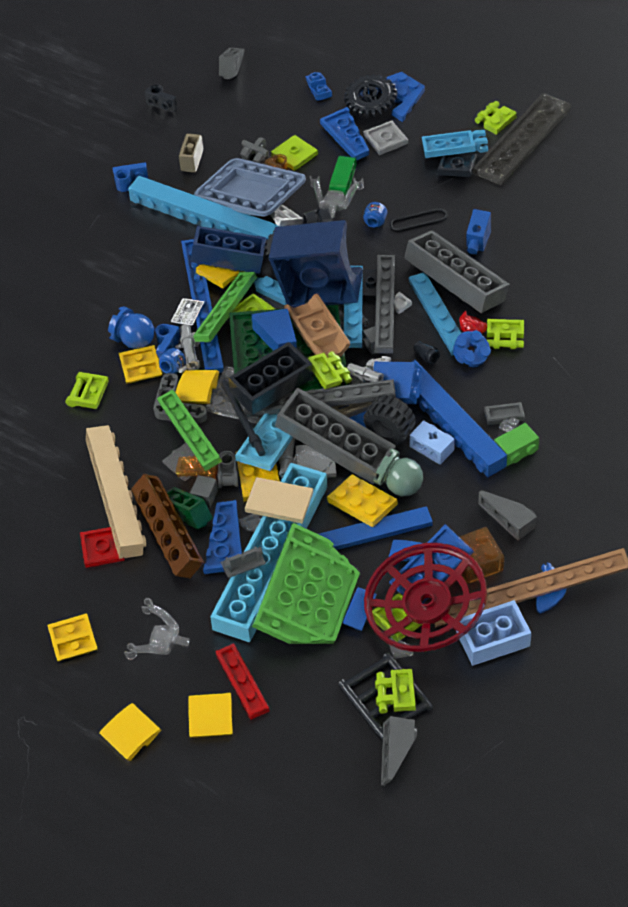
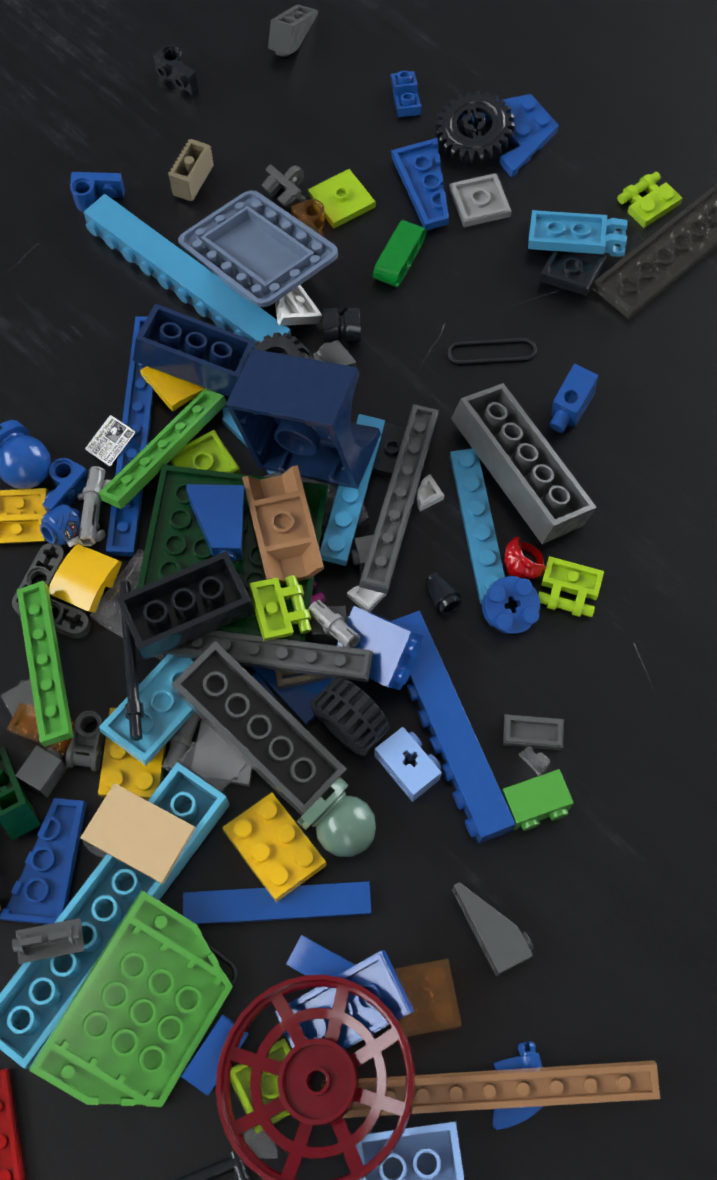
camera: 10 degrees right, 15 degrees up
(335, 199) = (377, 291): clear piece -> none
(375, 214) = (429, 331): blue head -> none

